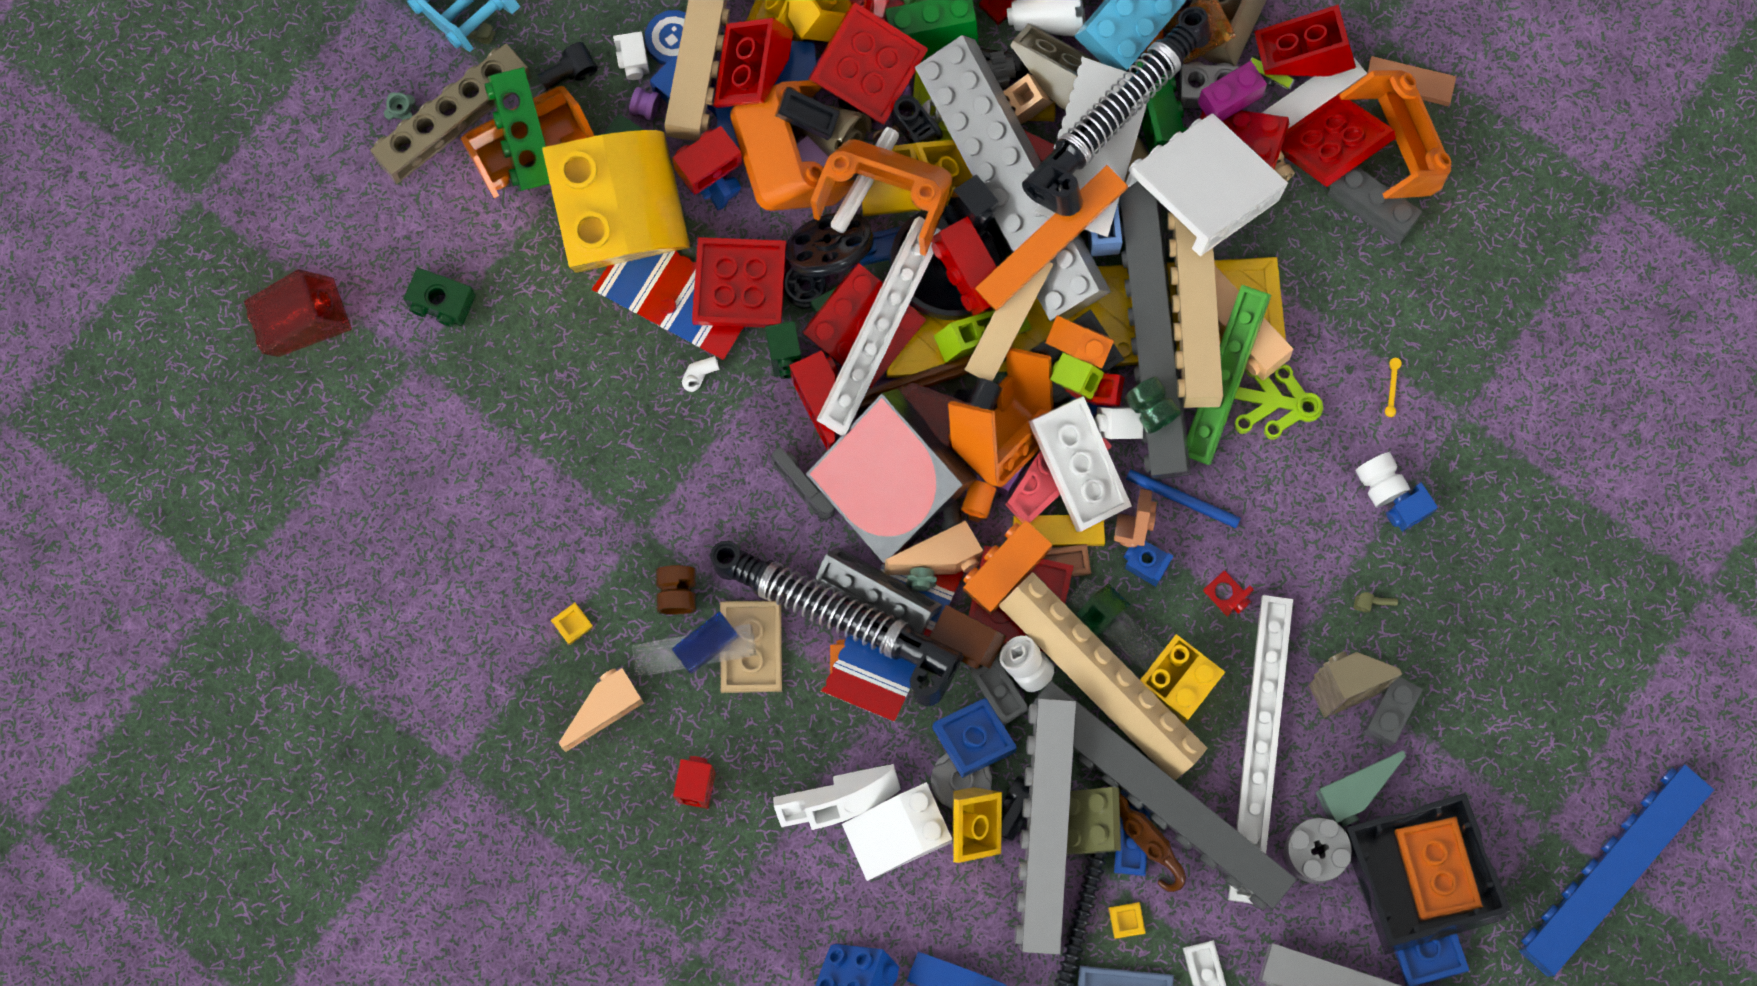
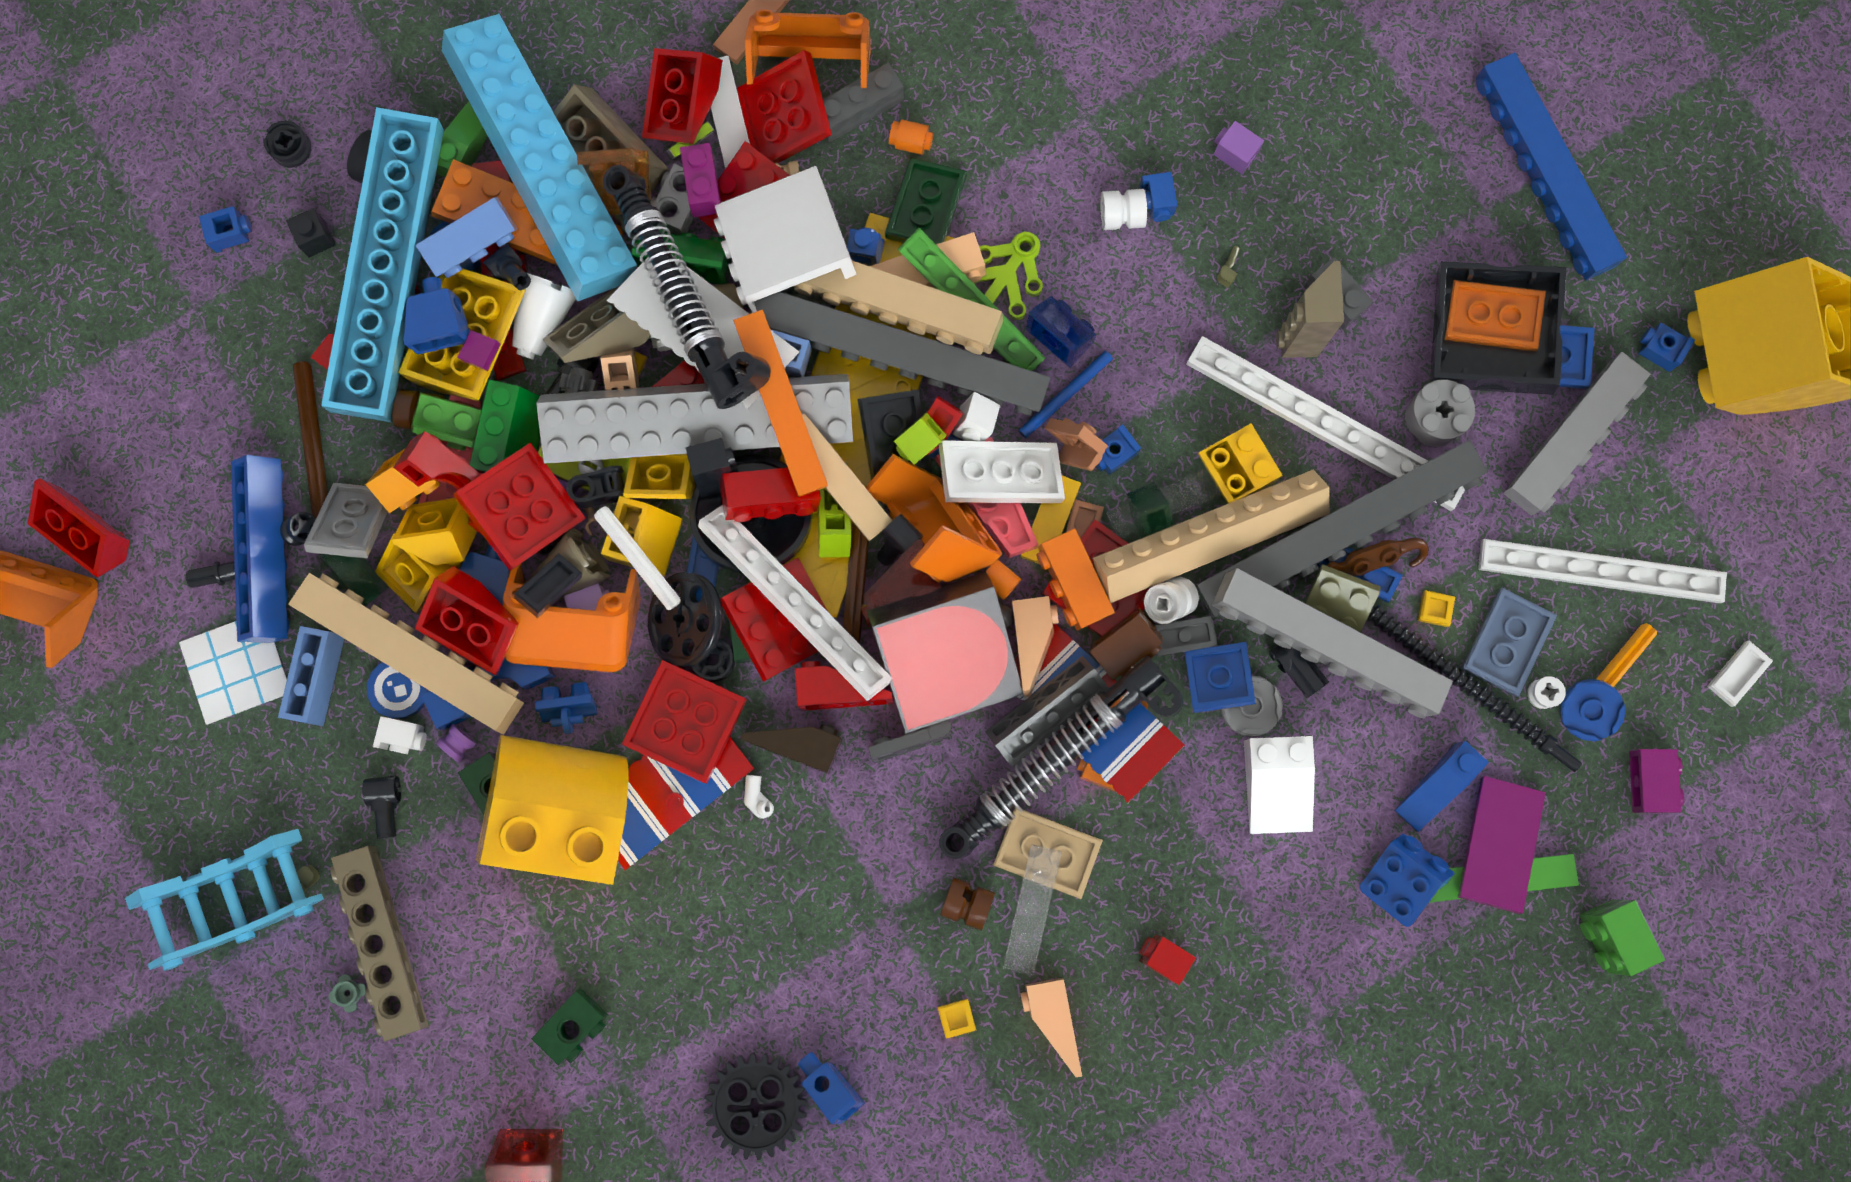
camera: 70 degrees left, 5 degrees up
(406, 491) = (759, 1135): none -> black gear
(466, 535) = (839, 1099): none -> blue torso
(516, 82) = (379, 880): green brick -> none
(559, 120) = (435, 877): orange windscreen -> none
(705, 642) = (1032, 895): clear blue tile -> none
(707, 159) = (548, 703): red brick -> none
(760, 394) = (804, 745): none -> dark brown slope
(783, 347) = (773, 704): dark green brick -> none
(847, 798) = (1232, 815): white slope -> none
(921, 579) = (1051, 665): sand green plate -> none
(928, 183) = (618, 550): orange windscreen -> none
(976, 823) = (1306, 709): yellow slope -> none
(1079, 341) = (889, 420): orange slope -> none
(1150, 402) = (980, 379): clear green wheel -> none
(1238, 262) = (865, 243): none -> blue brick
(1238, 600) = (1182, 384): red bracket -> none
(1240, 467) = (1060, 330): none -> clear blue slope
(1308, 301) = (926, 201): none -> dark green tile
(1353, 793) = (1398, 357): sand green slope -> none
(1364, 262) = (910, 136): none -> orange brick
(1394, 364) = (1015, 153): yellow hinge -> none
(1493, 561) = (1237, 146): none -> medium lavender brick

